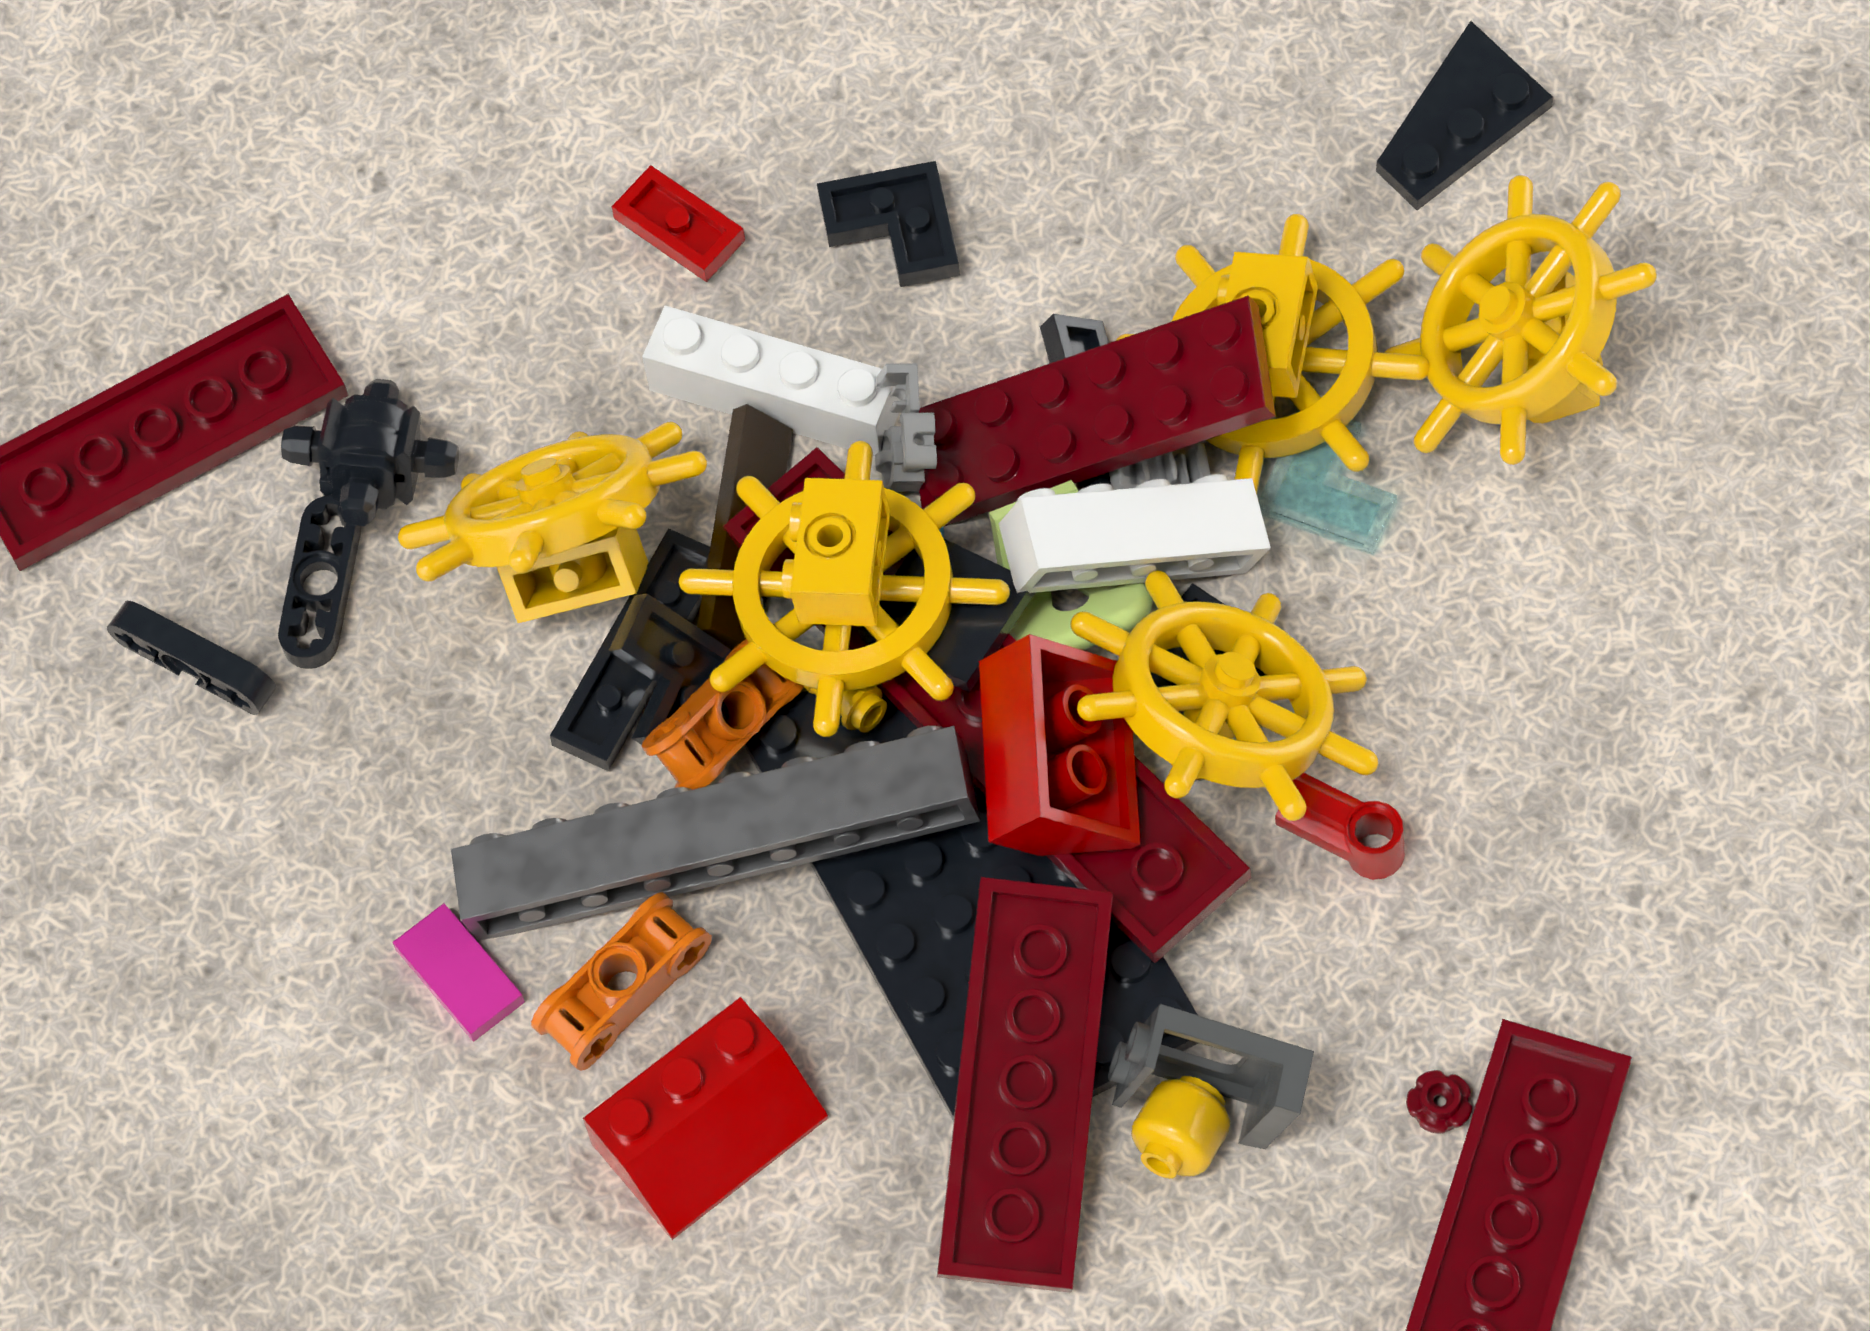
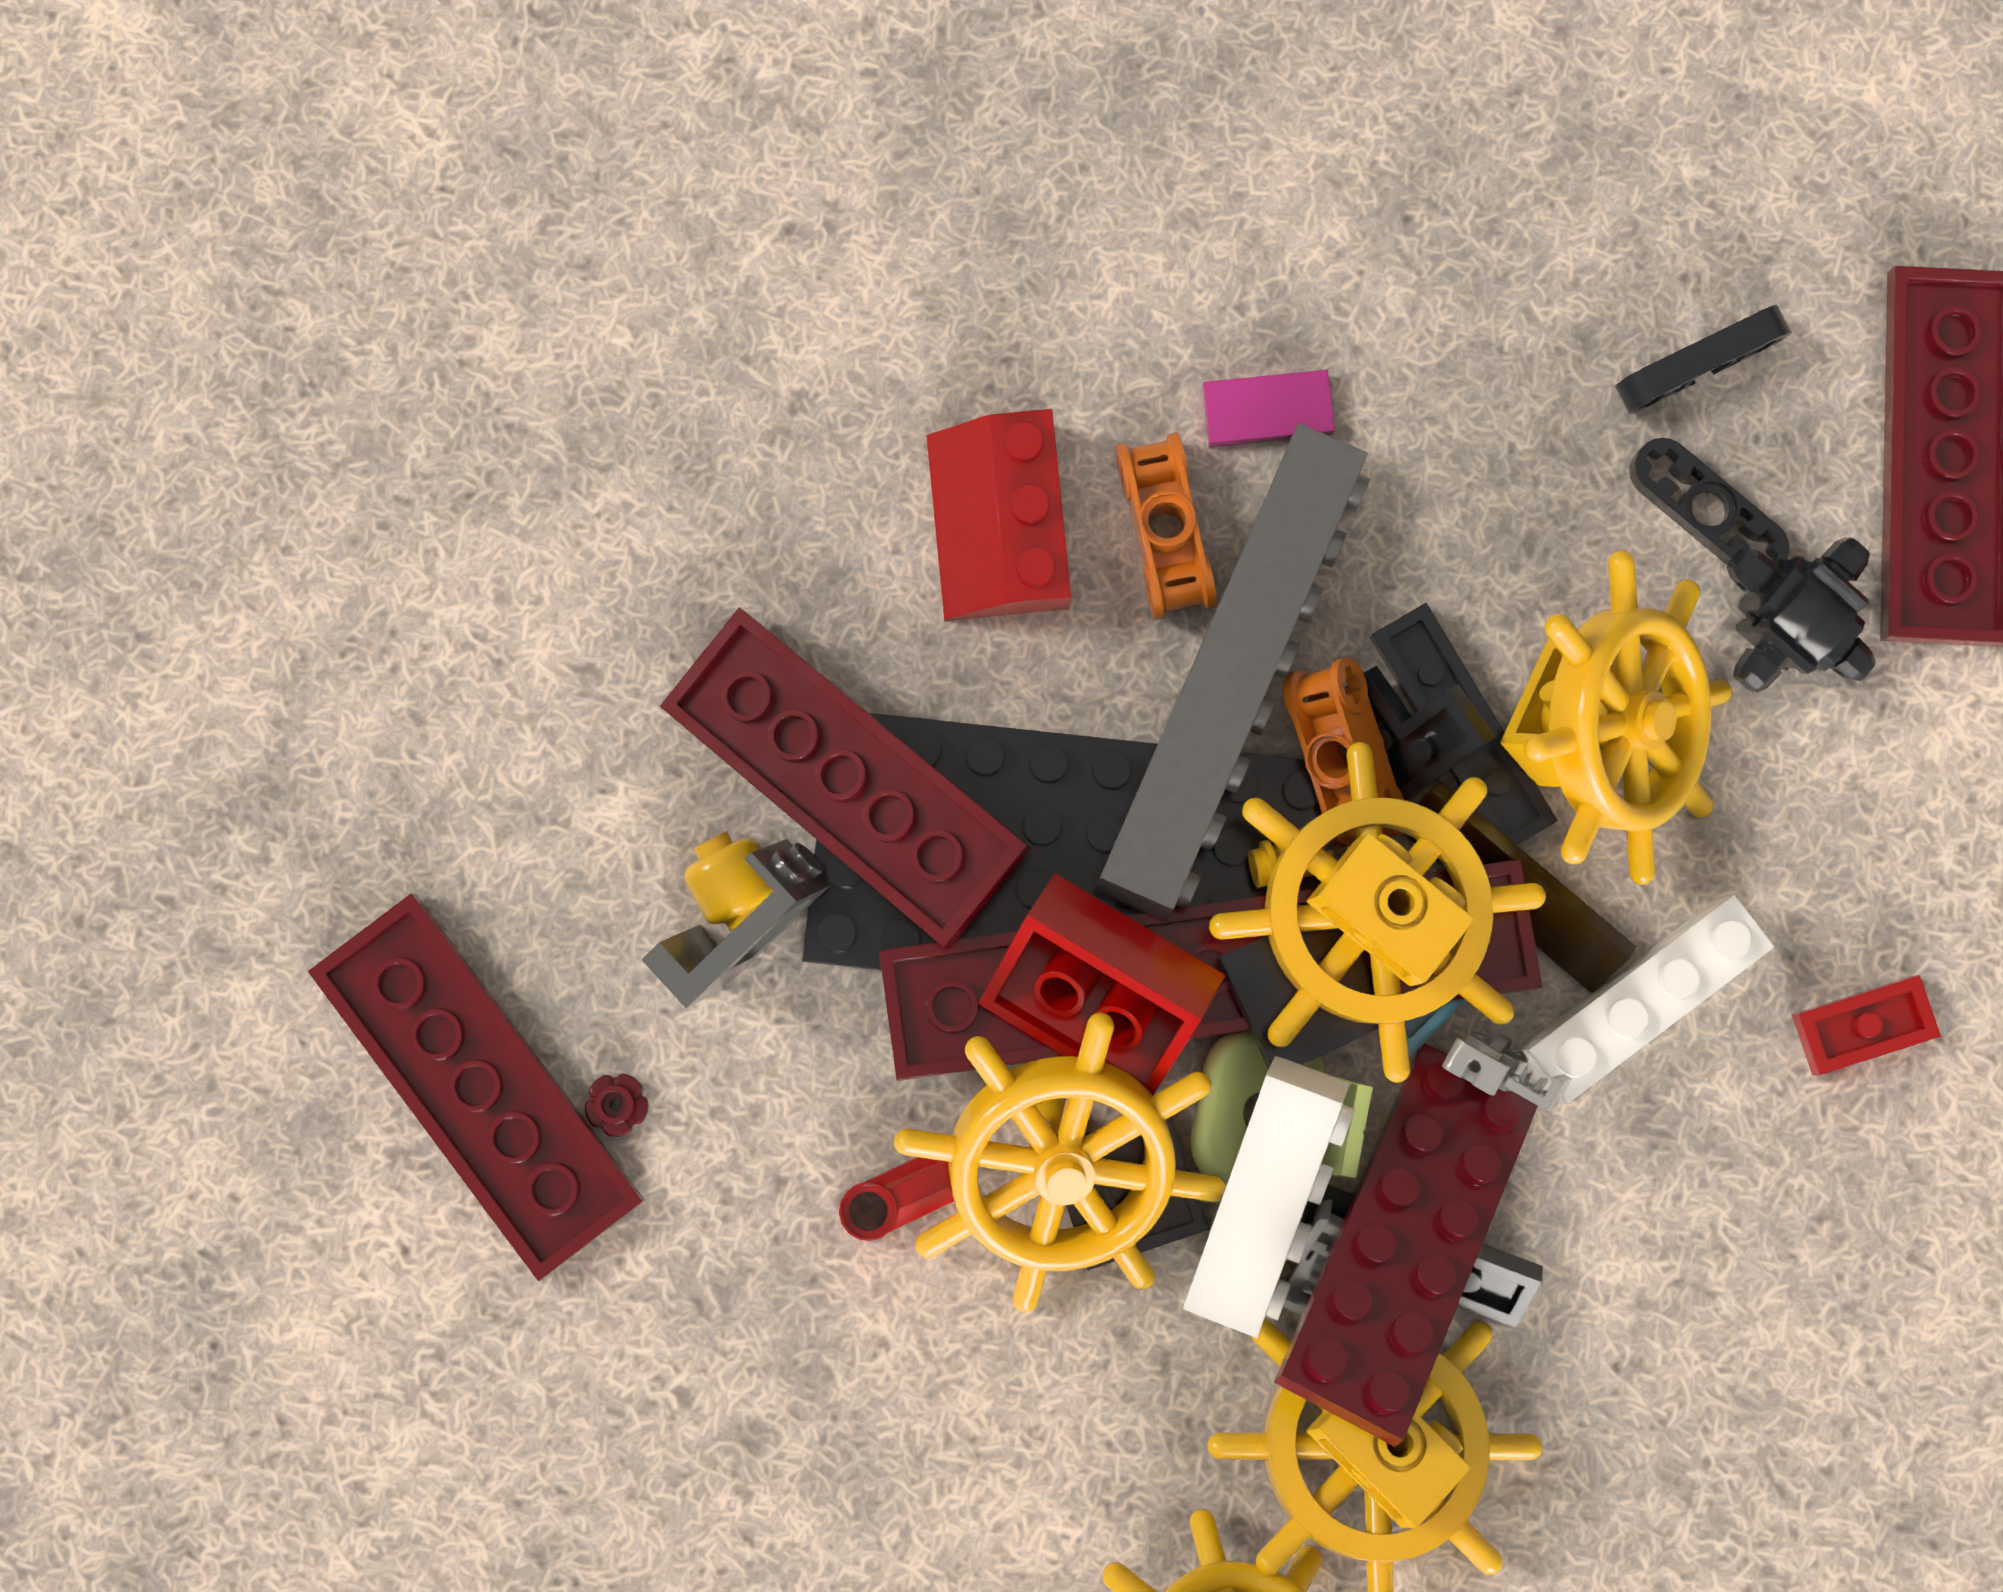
camera: 115 degrees right, 20 degrees up
(898, 204) = (1755, 1230): black plate -> none
(1315, 497) = (1218, 1393): clear light blue tile -> none

